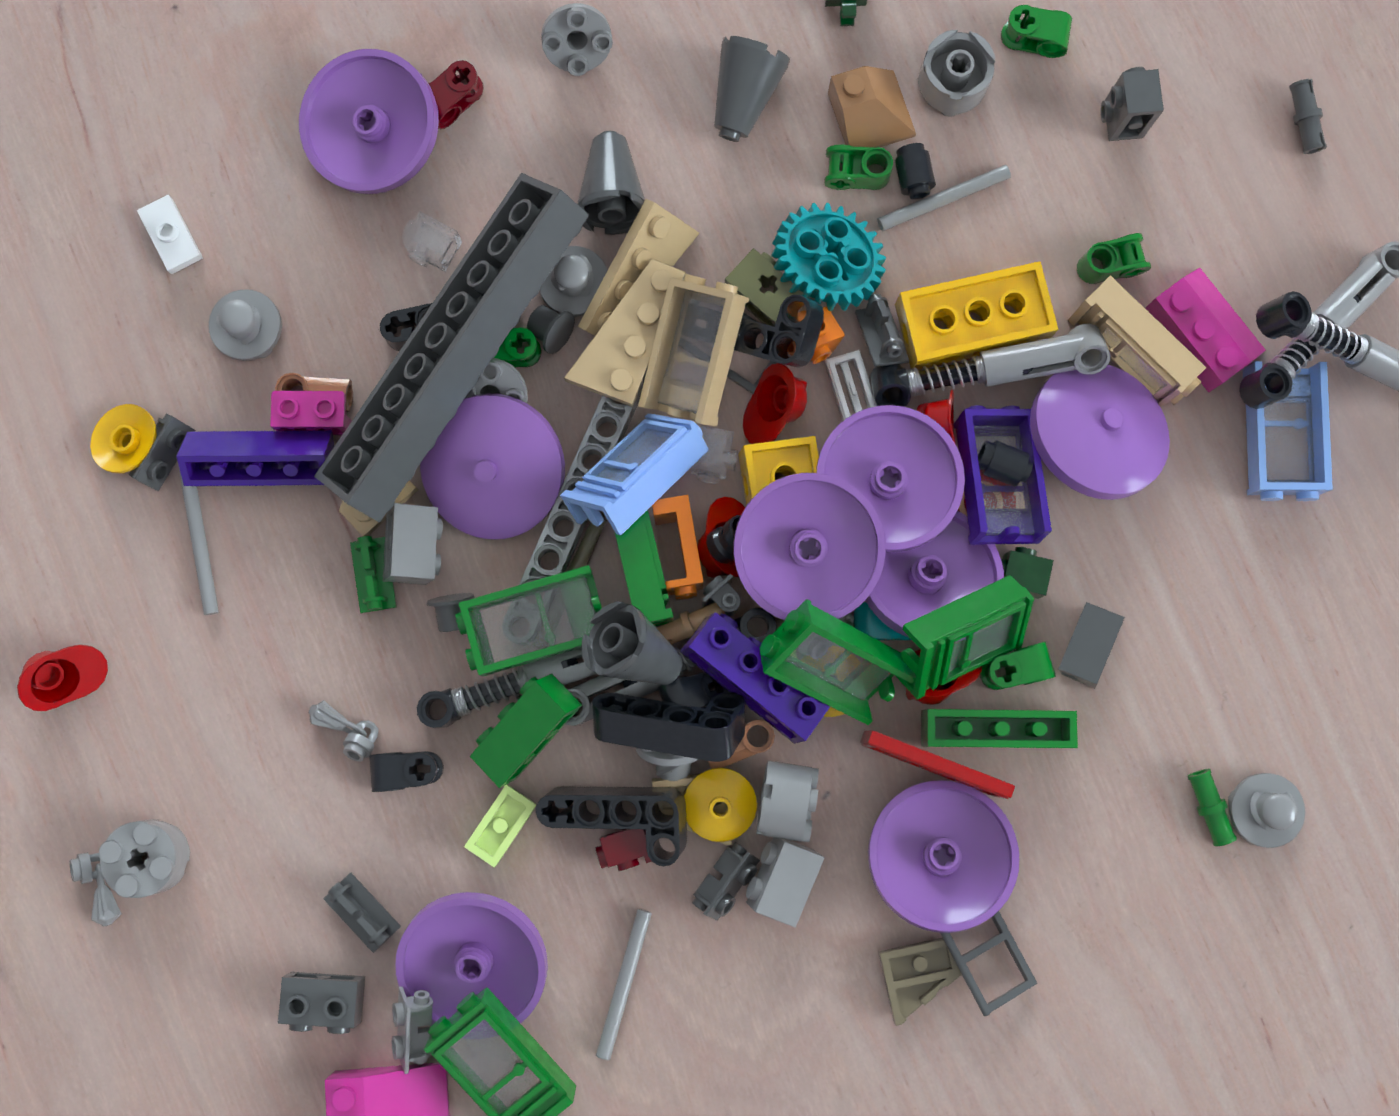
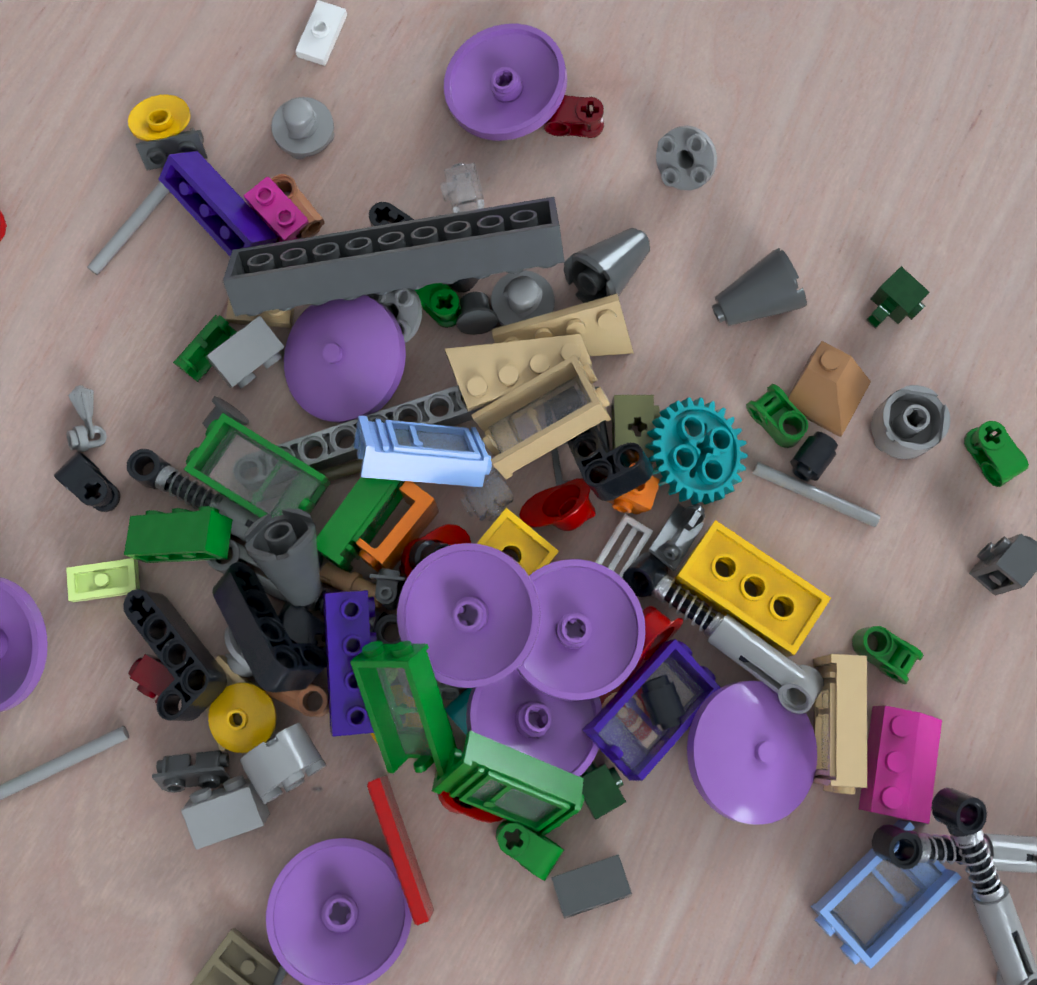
camera: 50 degrees right, 5 degrees down
(999, 728) = (468, 873): green brick -> none

